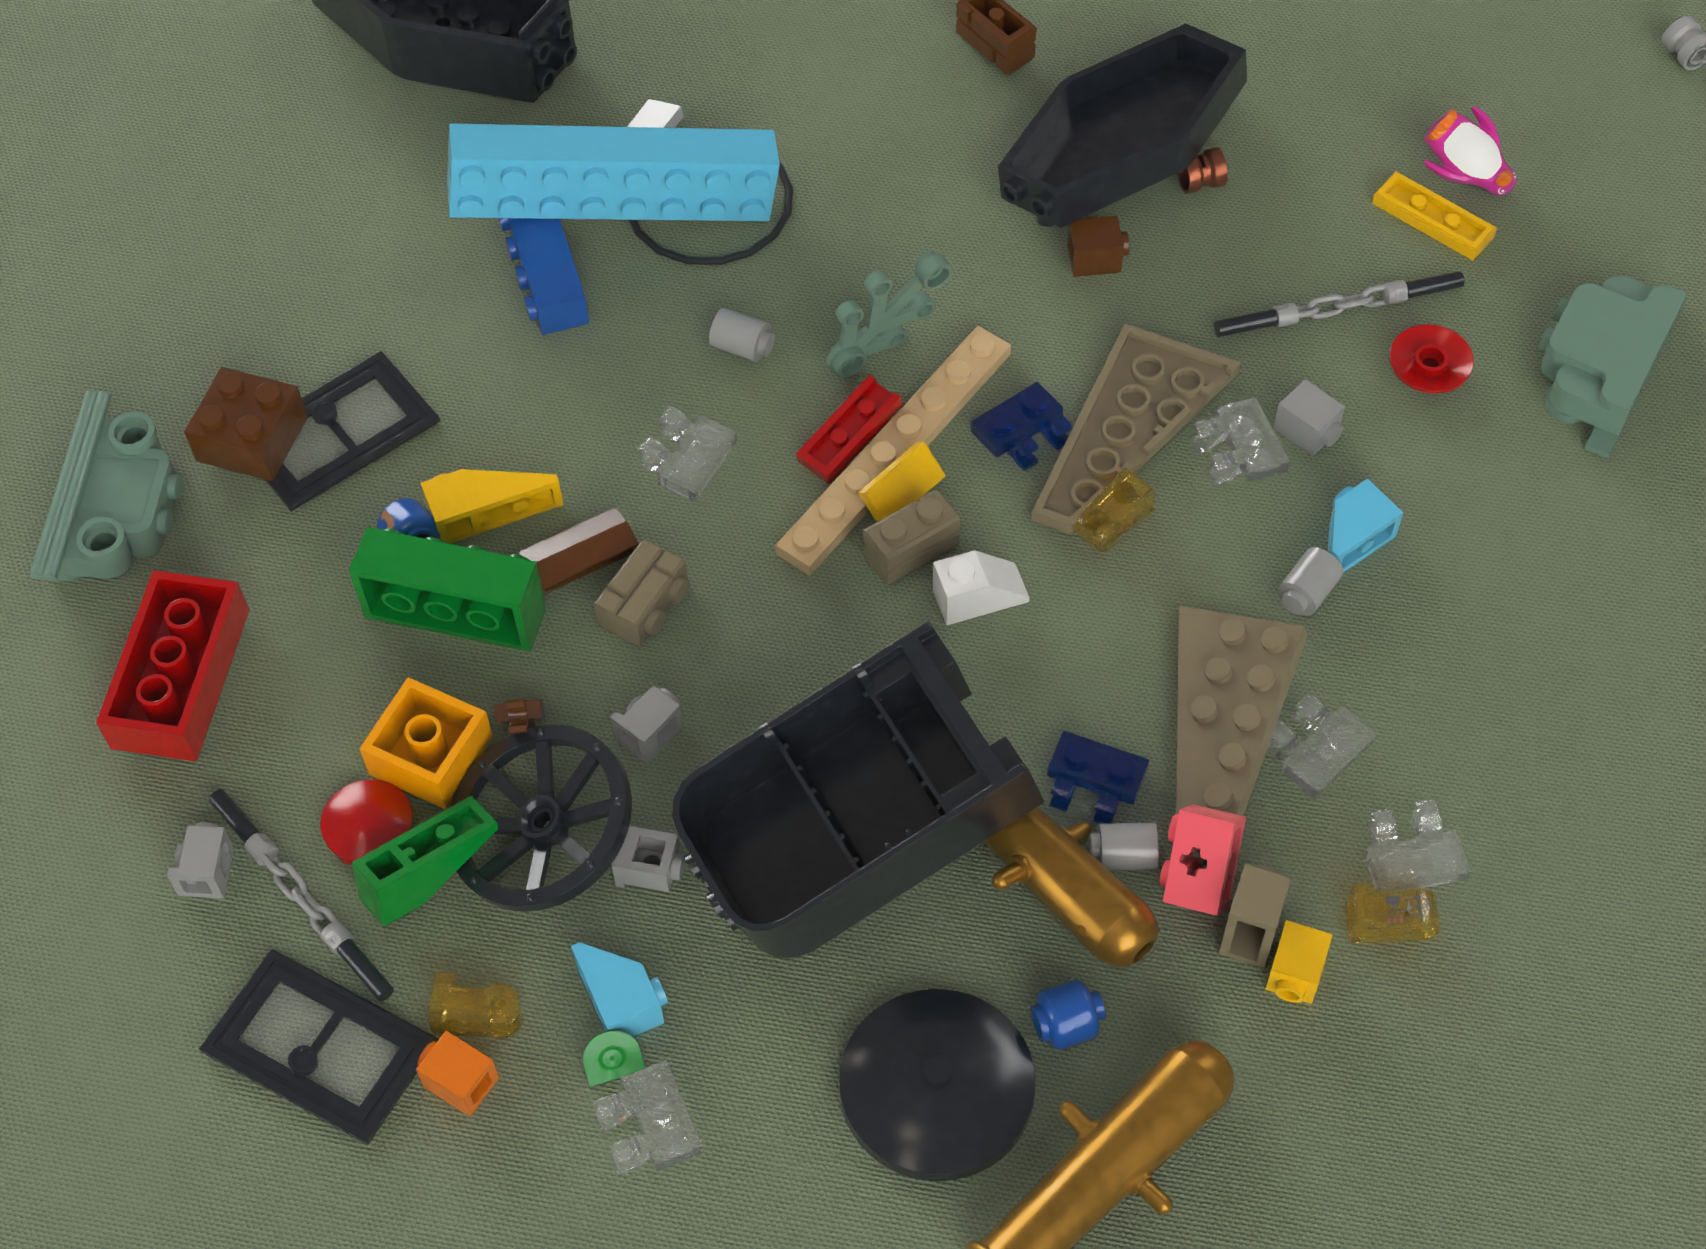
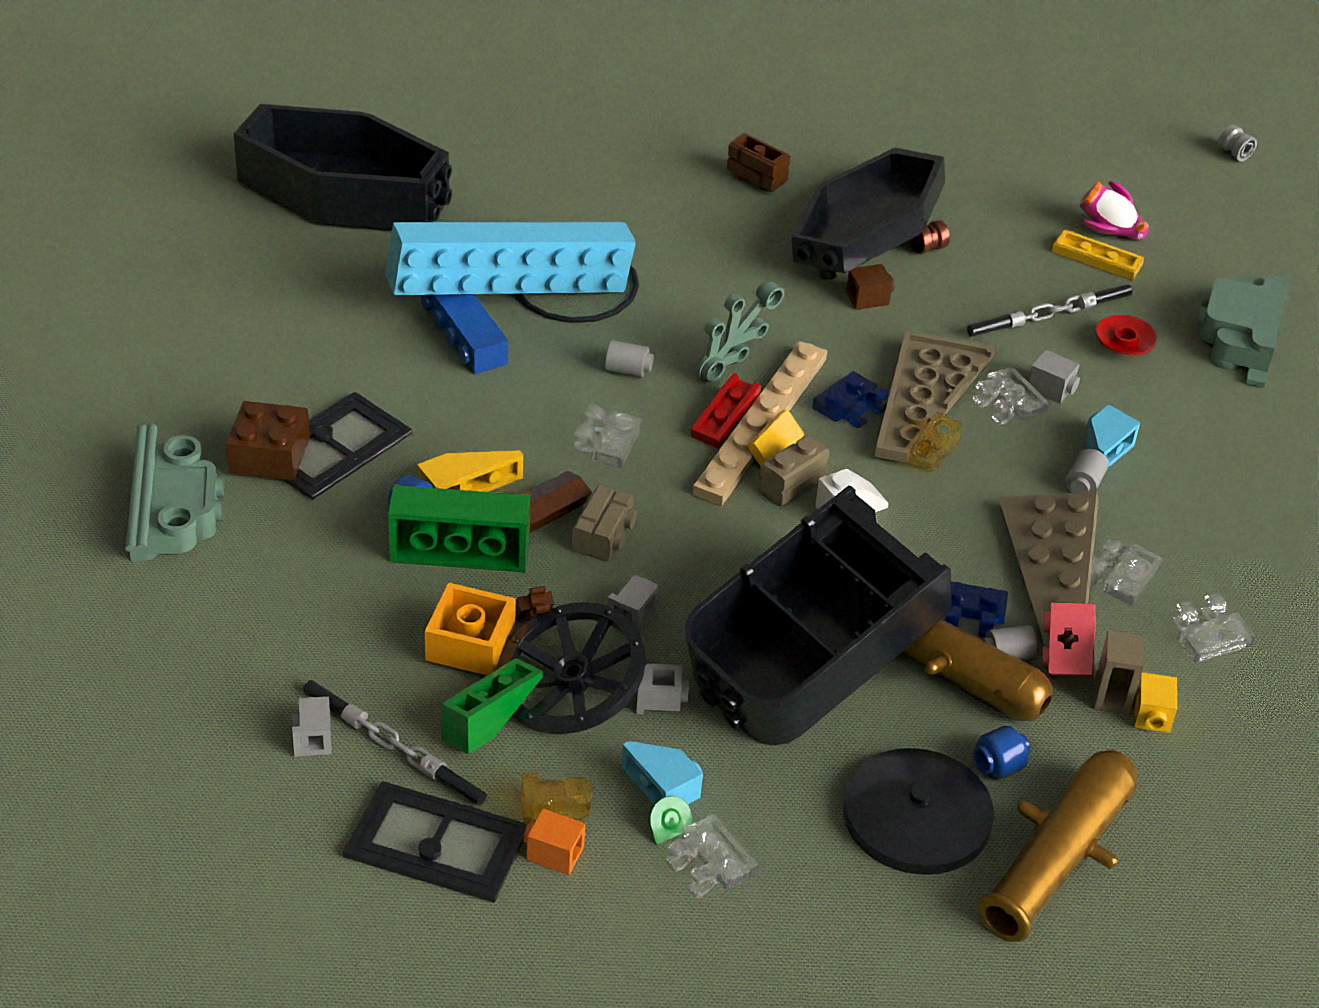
camera: 15 degrees left, 15 degrees down
(173, 666) = (255, 599): red brick -> none
(364, 818) = (427, 686): red dish -> none
(1391, 915) = (1209, 668): clear yellow leg -> none

